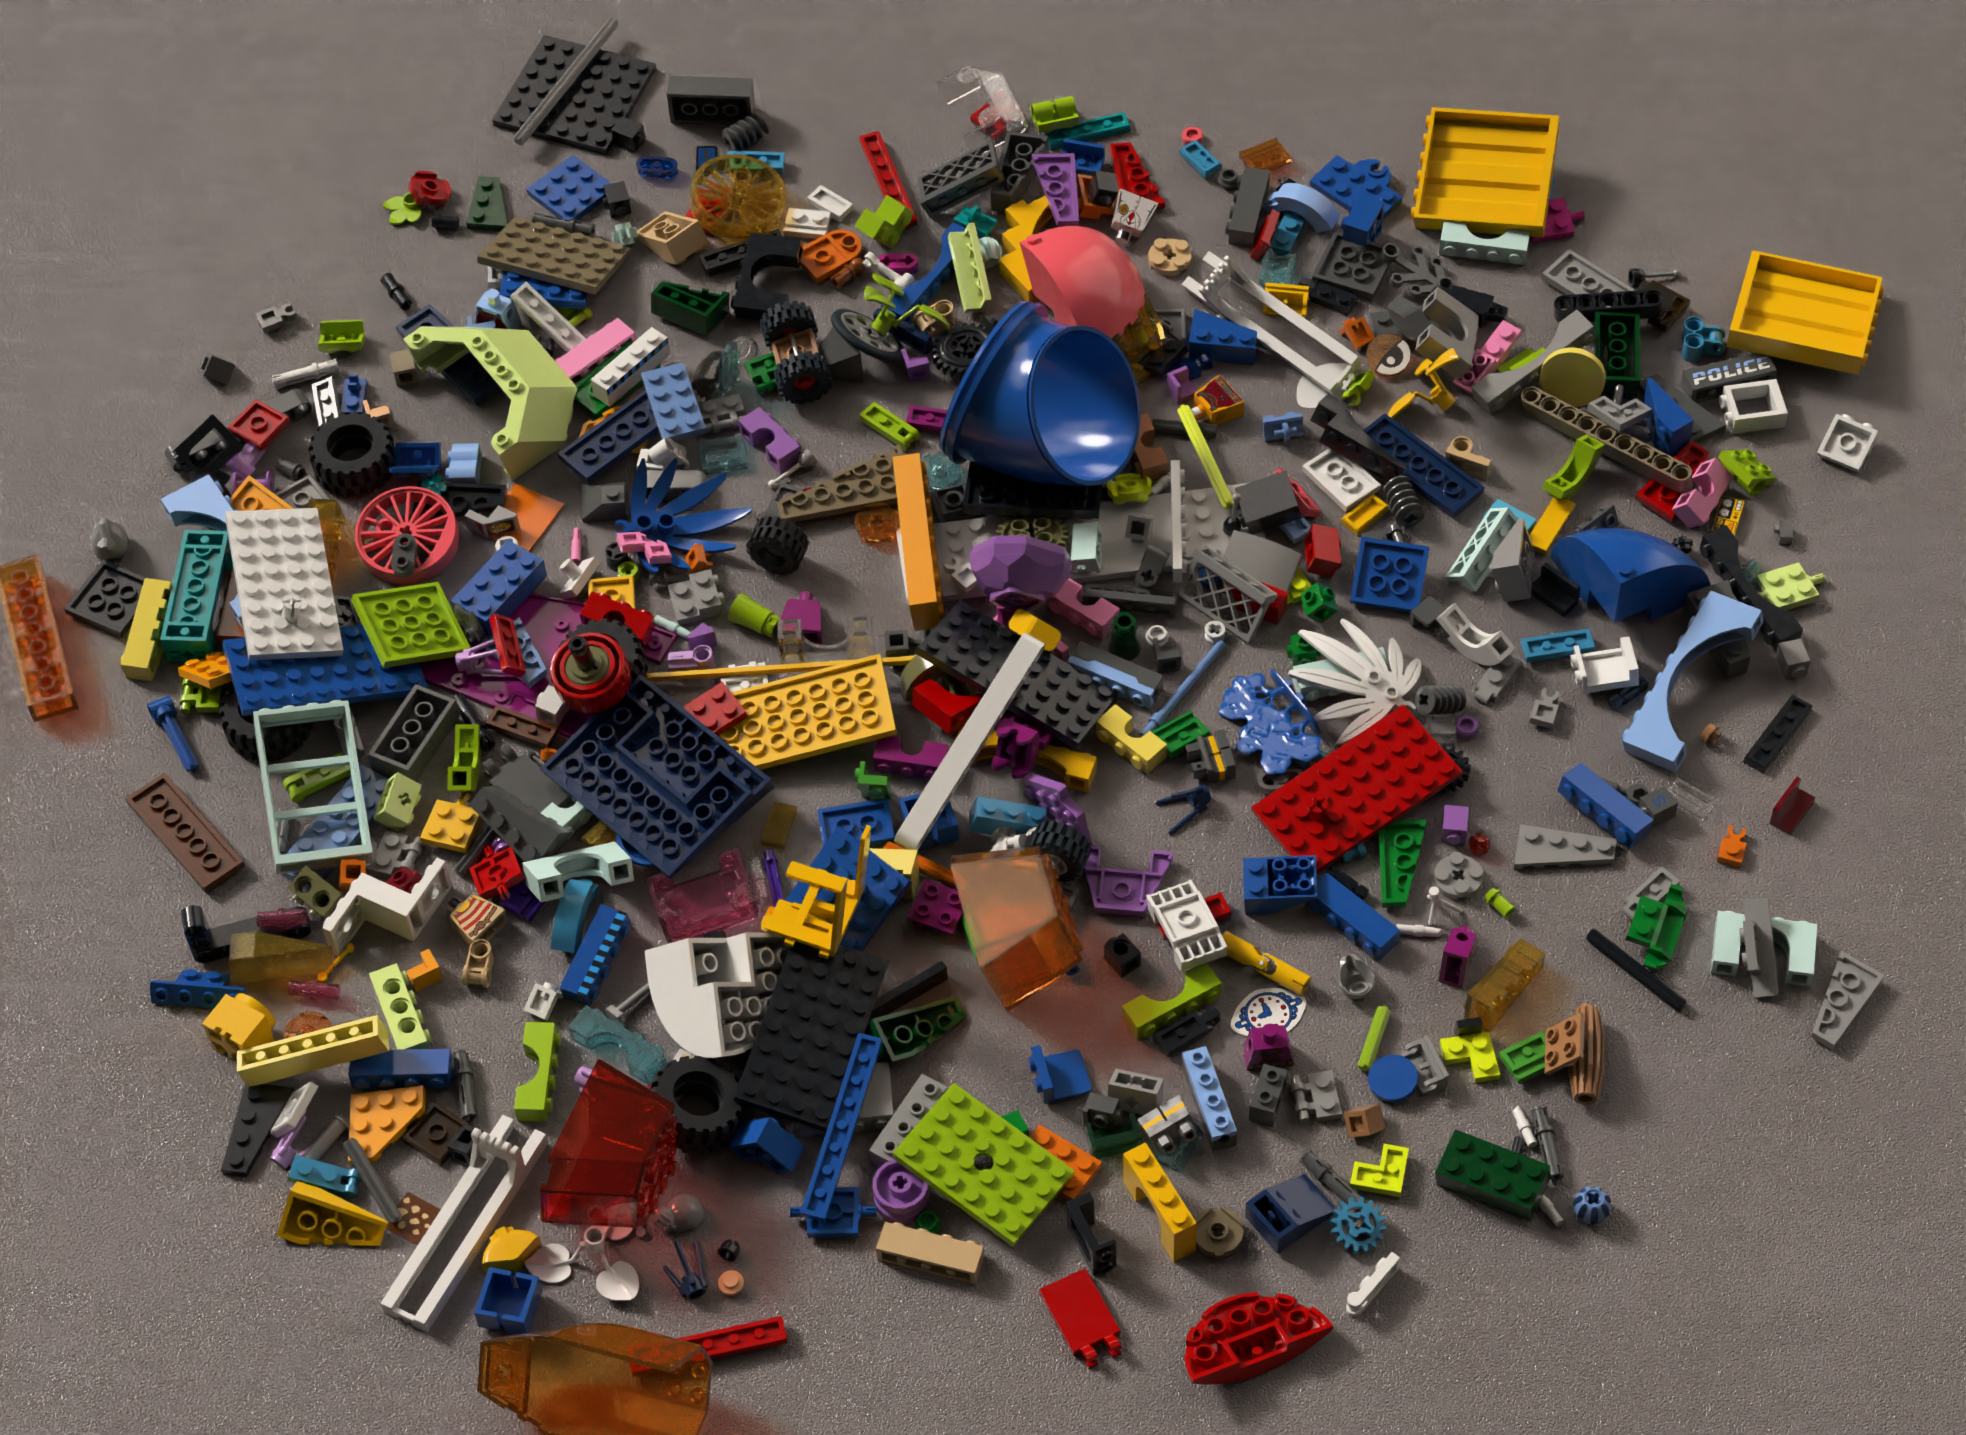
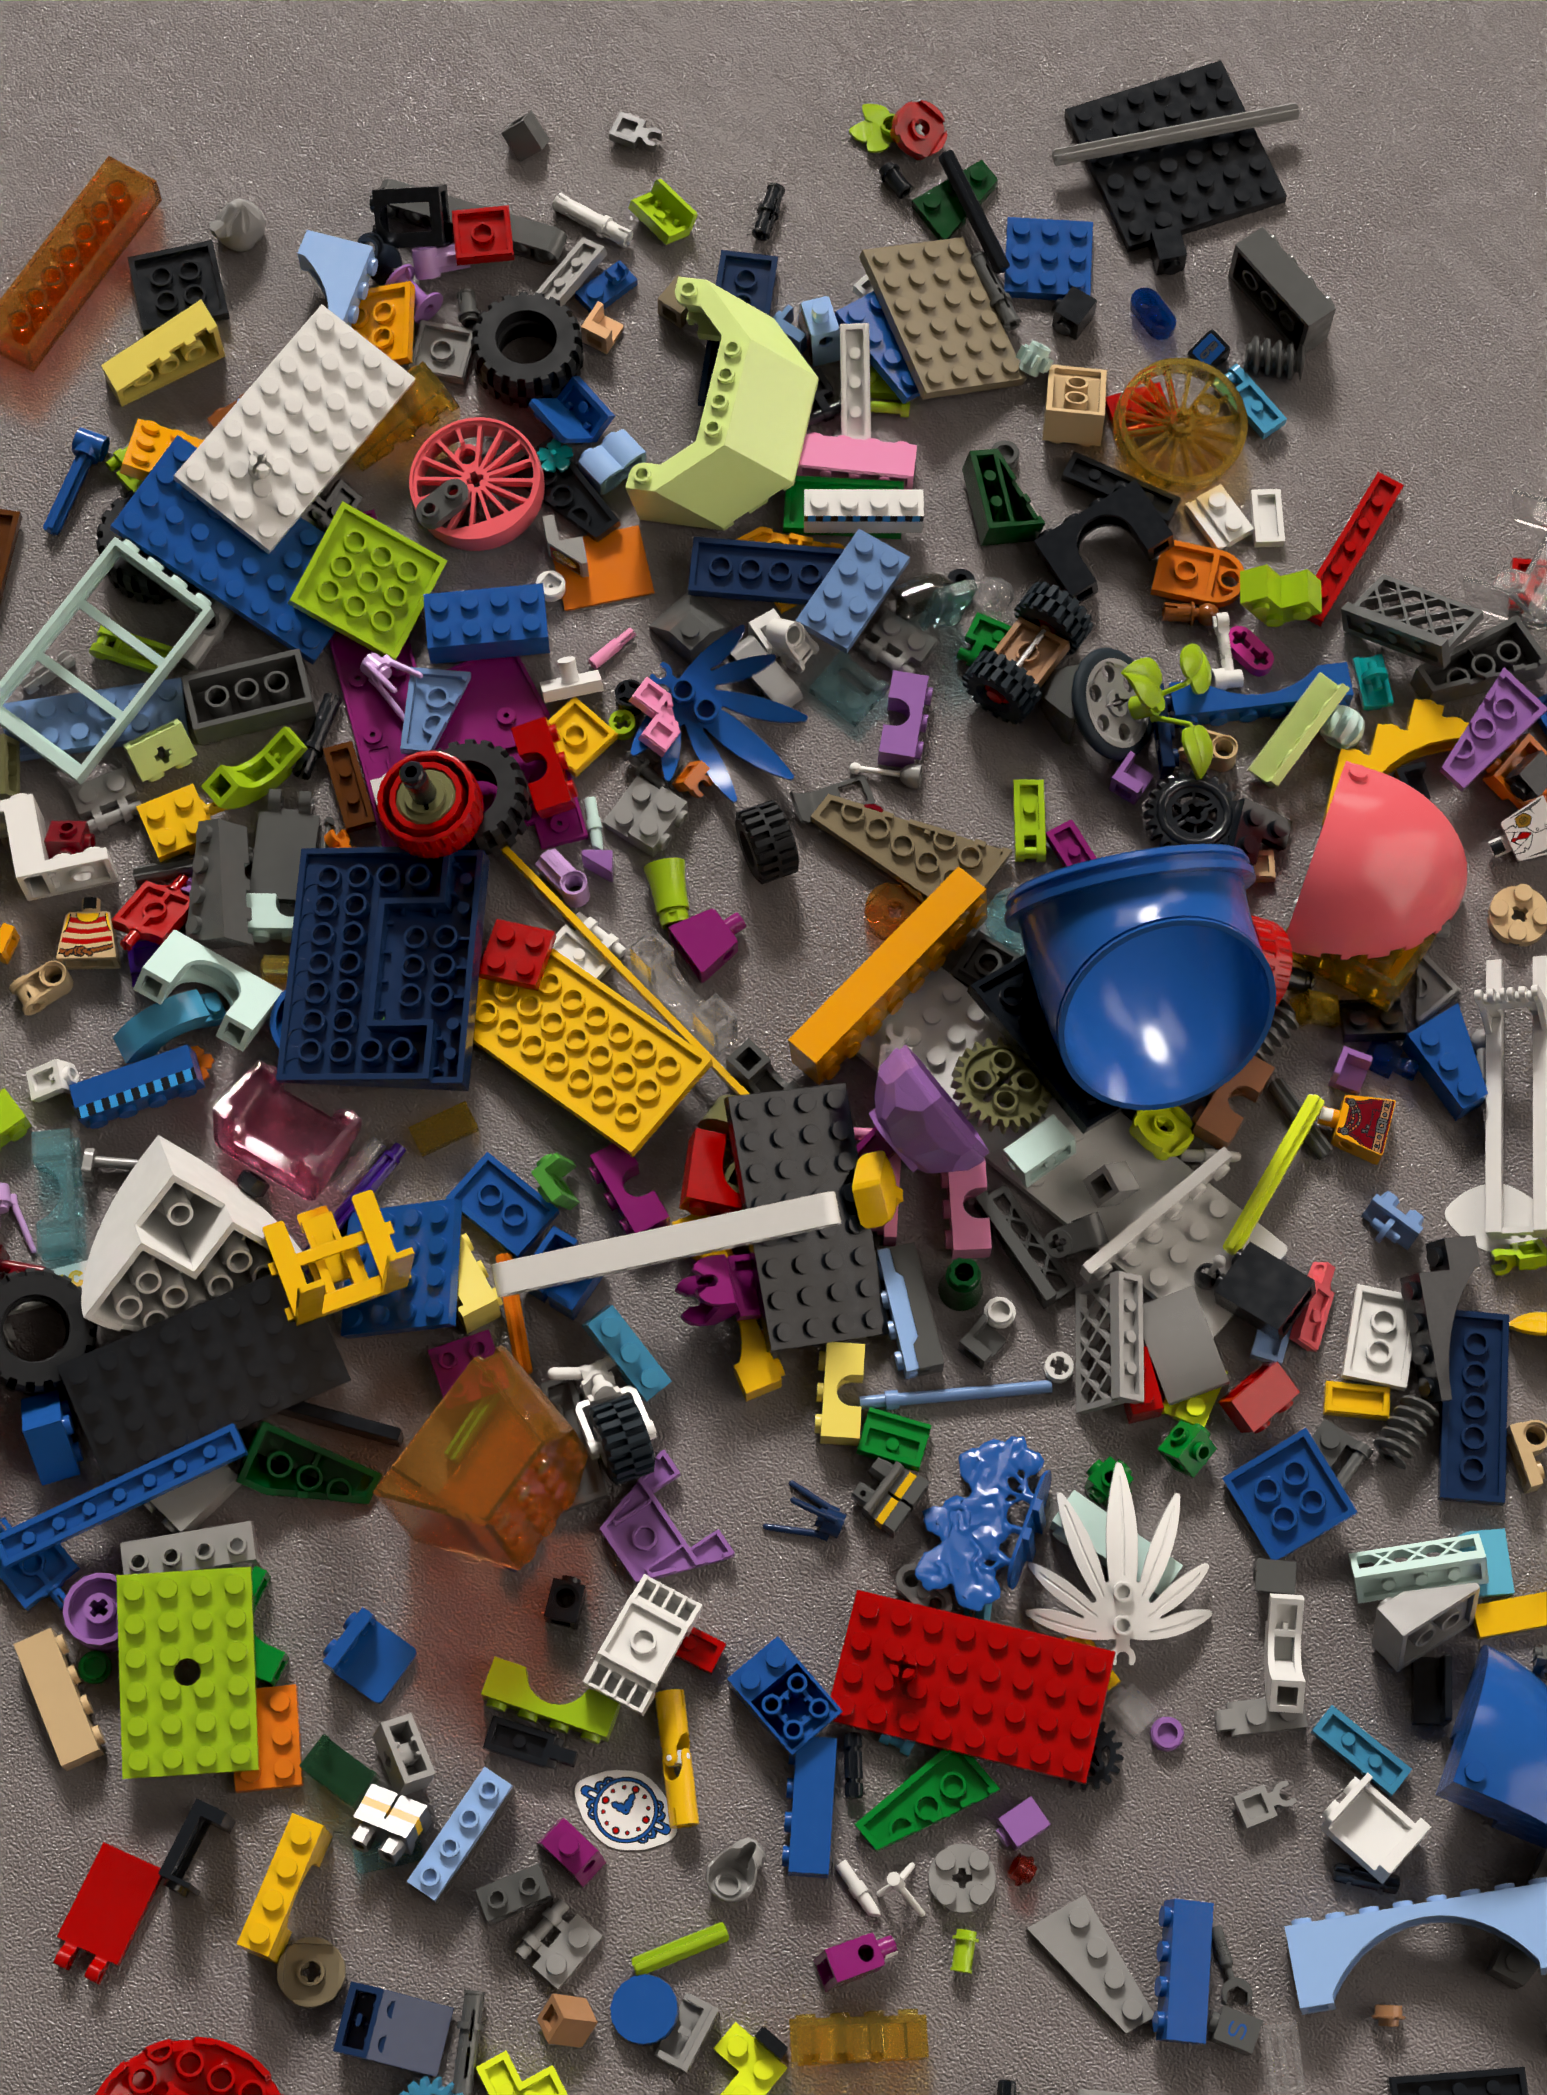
camera: 45 degrees right, 15 degrees up
(194, 595) = (226, 359): teal plate -> none
(349, 871) = (42, 781): orange brick -> none
(469, 625) = (416, 646): dark grey plate -> none
(507, 645) = (419, 692): red plate -> none
(508, 198) = (974, 211): none -> black axle
(1057, 802) = (679, 1394): medium lavender wing -> none
(1102, 1111) = (356, 1738): dark grey brick -> none
(1440, 699) = (1167, 1682): dark grey piece -> none

